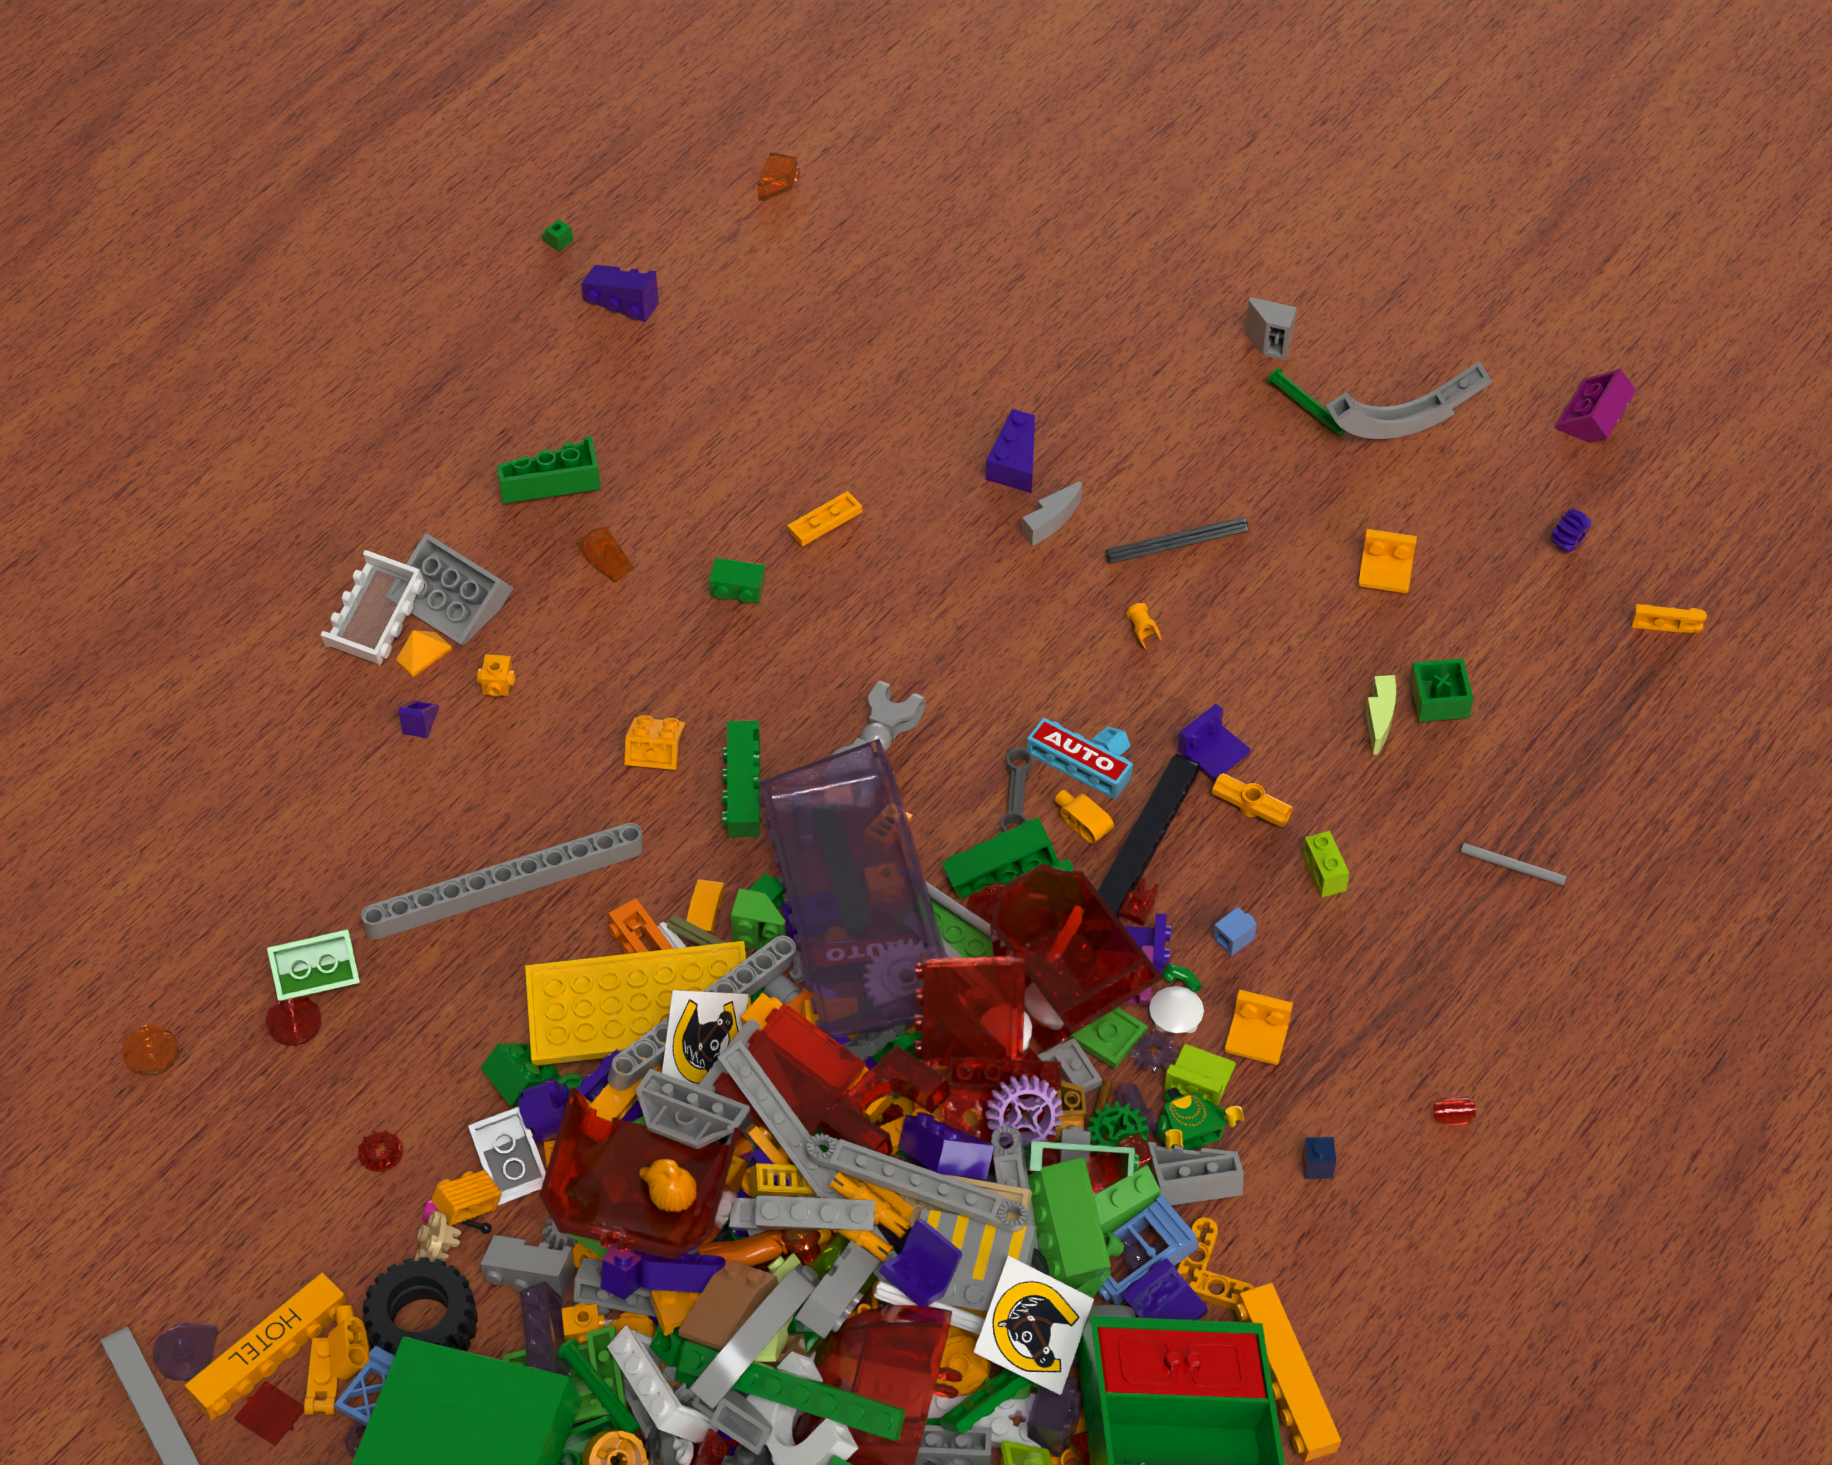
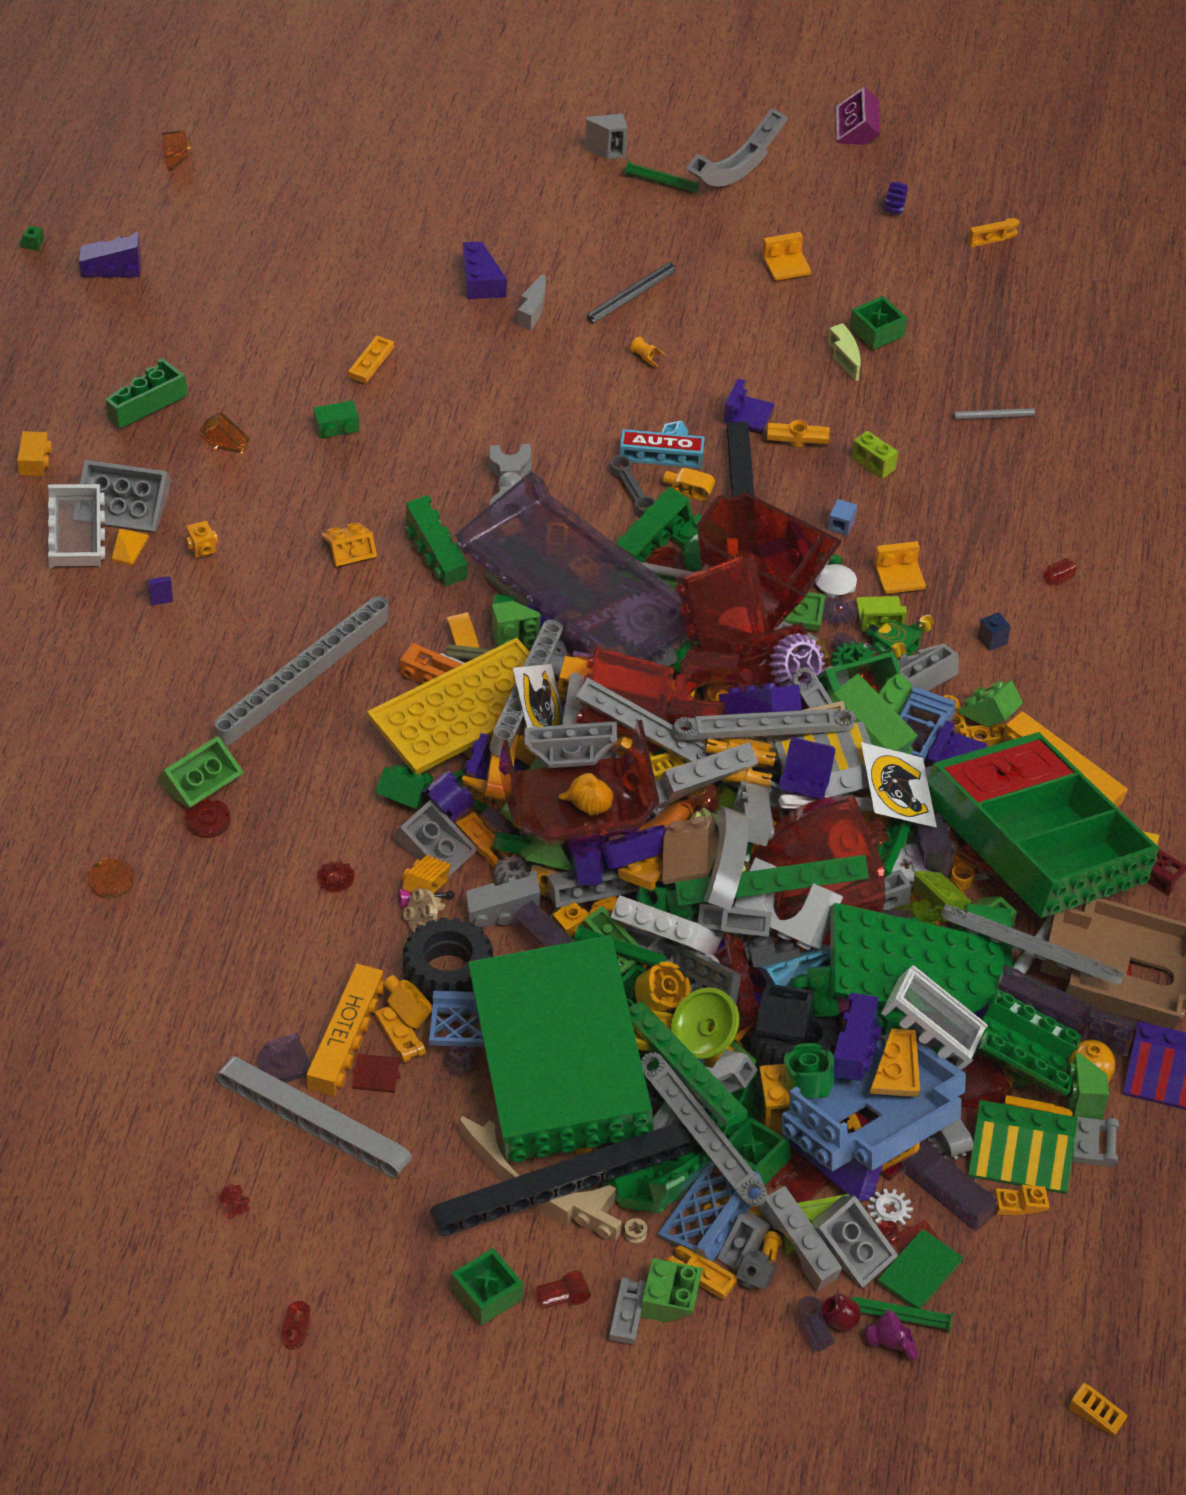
camera: 30 degrees left, 5 degrees down
(391, 501) = (33, 453): none -> light orange brick
(1250, 1254) = (992, 704): none -> bright green slope

